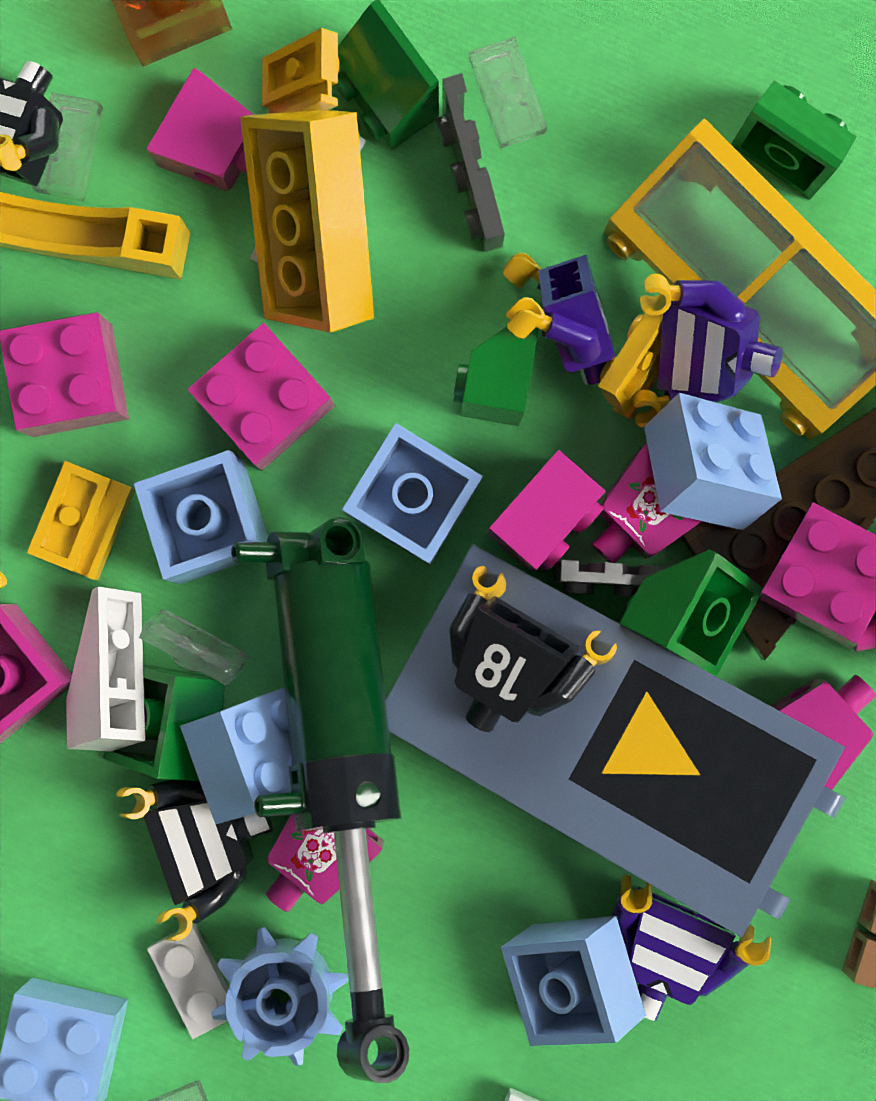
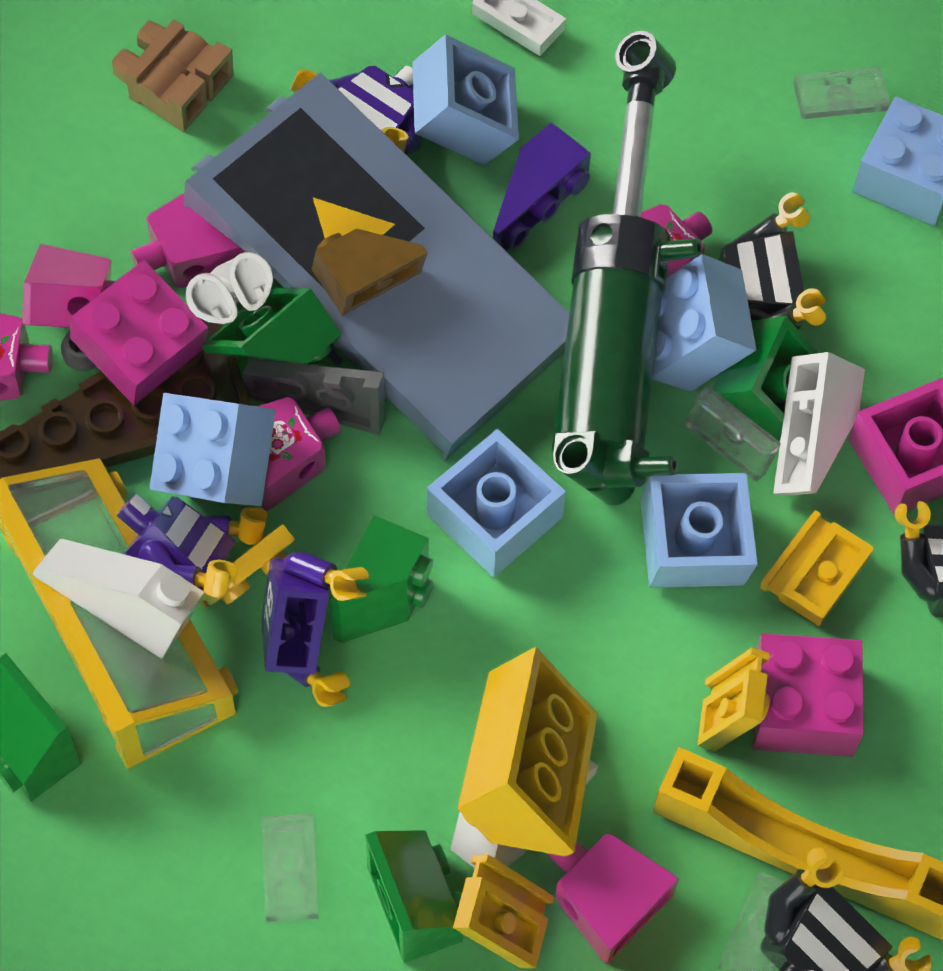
camera: 170 degrees left, 25 degrees down
(129, 337) = (736, 700): none -> yellow plate
(191, 979) = (788, 172): white plate -> none
(262, 397) = (617, 627): dark pink brick -> none
(263, 1020) = (717, 151): light blue brick -> none
(465, 916) = (543, 177): none -> dark purple slope
(483, 217) = (354, 786): dark grey wing -> none
(513, 660) = (445, 318): black torso -> none
(546, 512) = (378, 452): dark pink brick -> none
(619, 696) = (364, 266): none -> pearl gold slope
(744, 644) = (216, 293): none -> white piece
(752, 262) = (123, 591): none -> white slope

